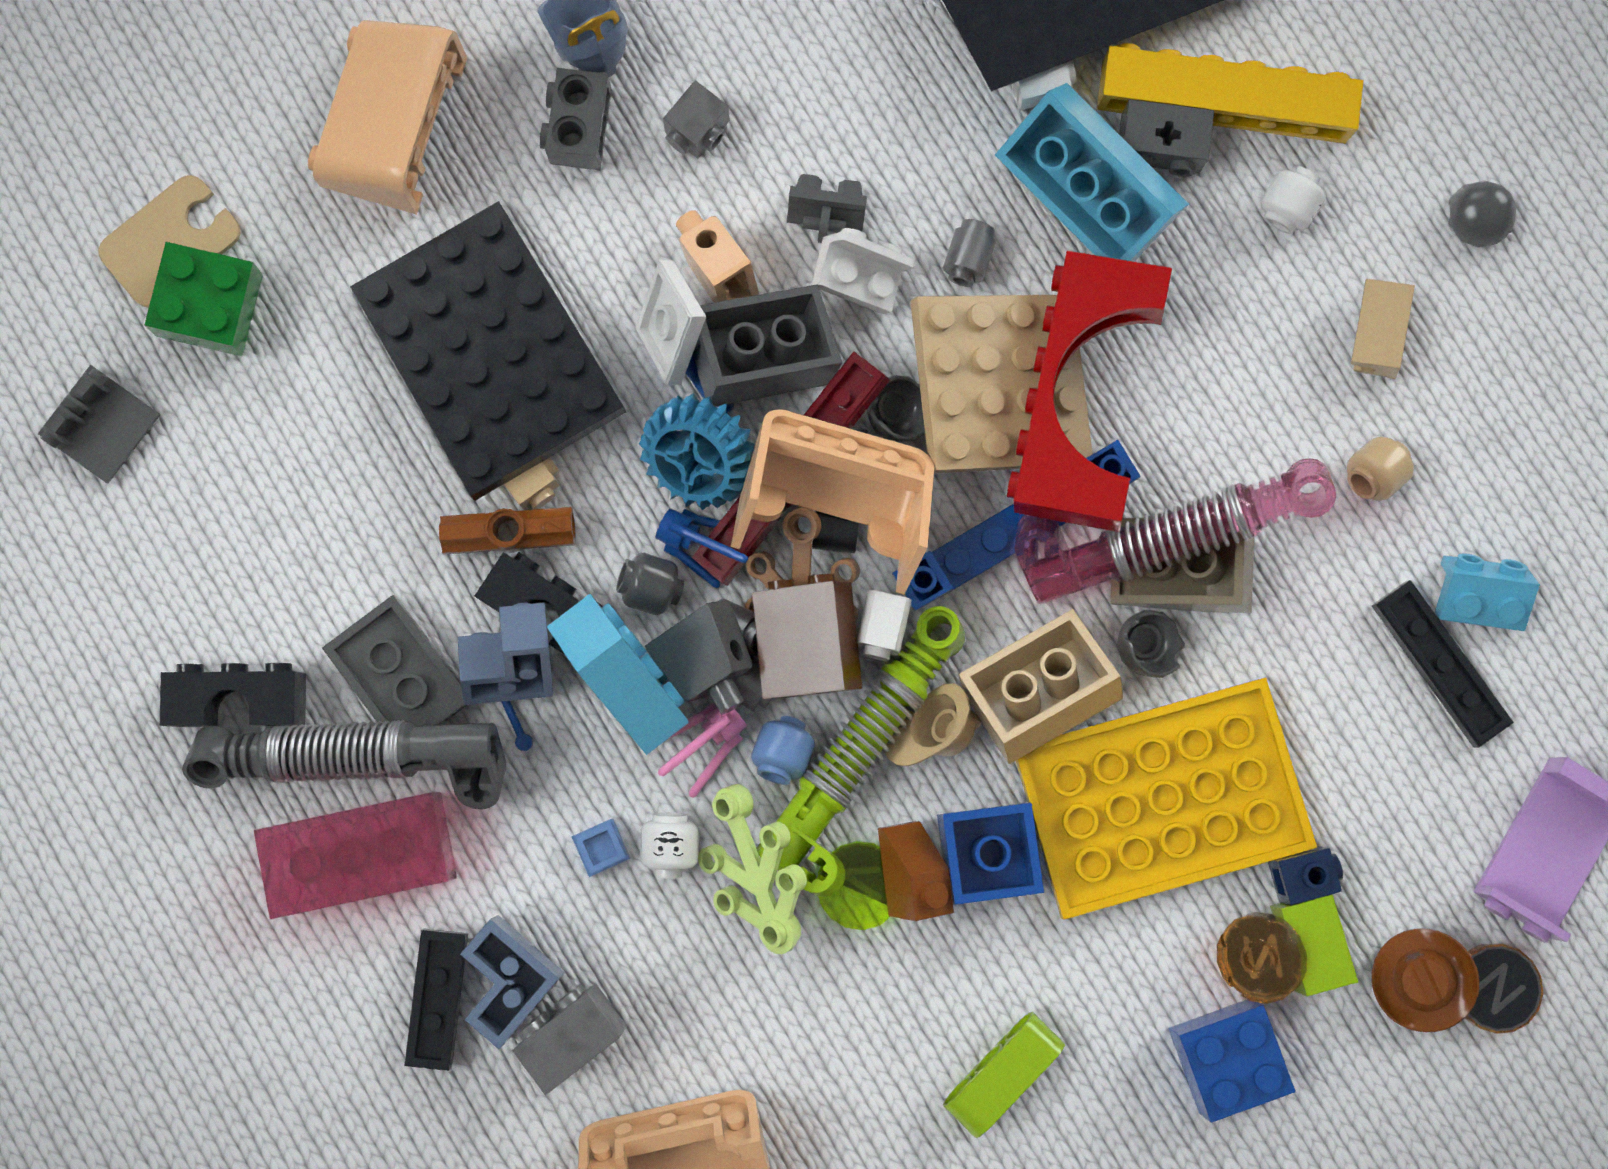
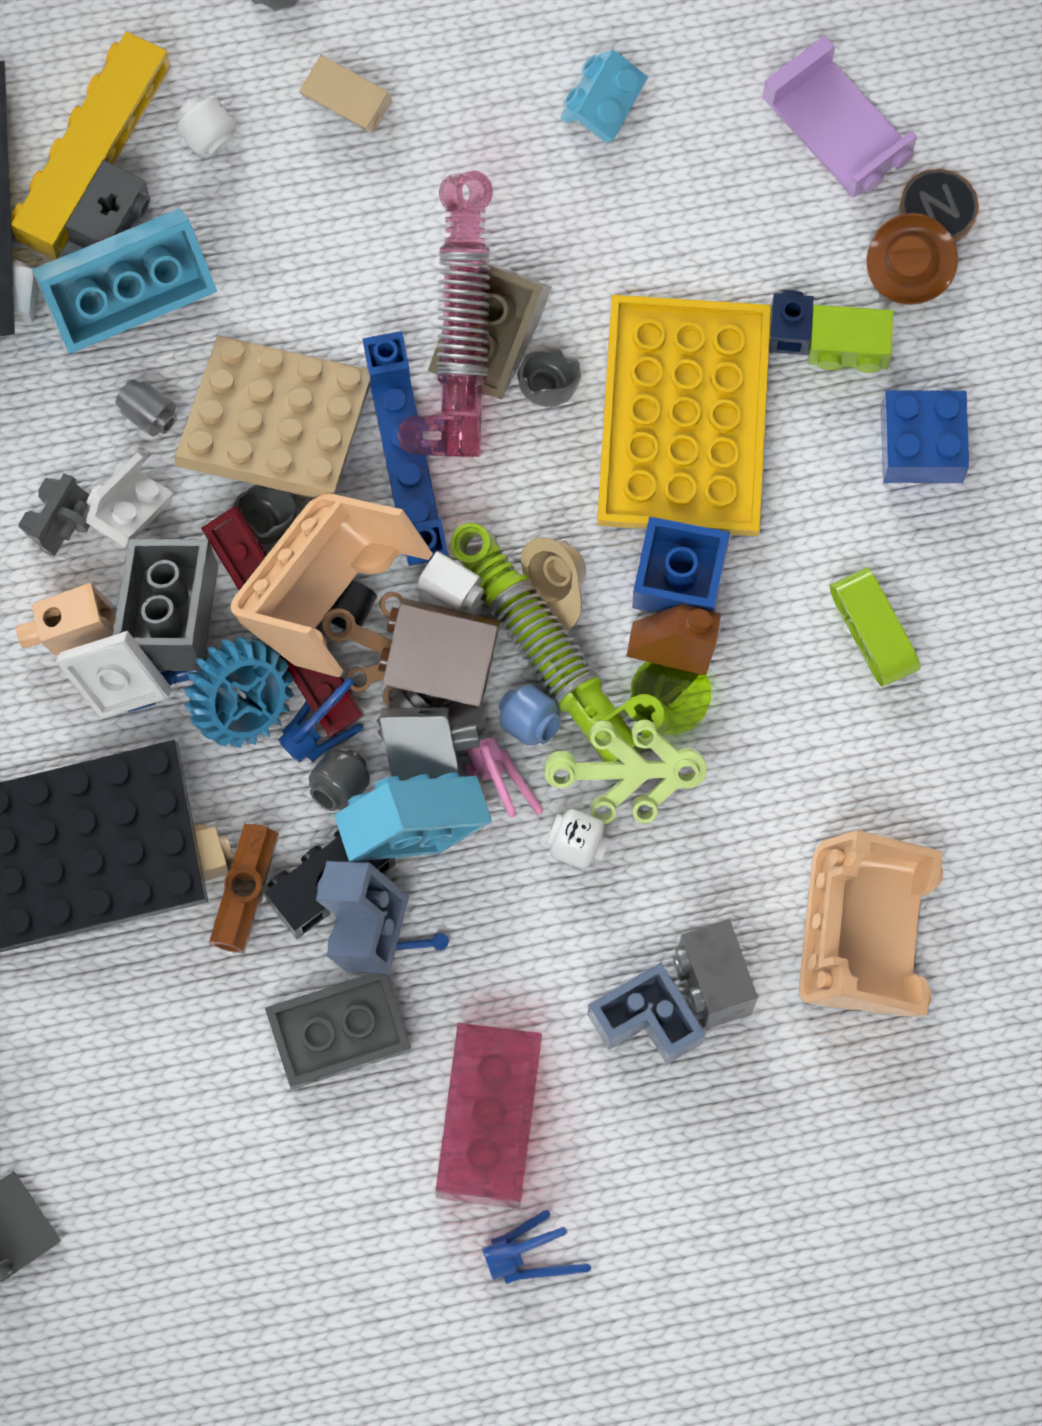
camera: 65 degrees left, 10 degrees down
(194, 696) = (314, 1146): black arch -> none
(221, 921) = (505, 1256): none -> blue plant
(281, 754) = (408, 1041): dark grey piece -> none
(436, 999) = (643, 1090): black plate -> none
(601, 847) = (558, 904): medium blue tile -> none
(1041, 686) = (552, 474): tan brick -> none
(1091, 299) = (375, 396): red arch -> none
(1261, 957) = (847, 381): clear orange tile -> none
(1379, 468) = (467, 140): tan head -> none
(1442, 664) = (651, 152): black tile -> none

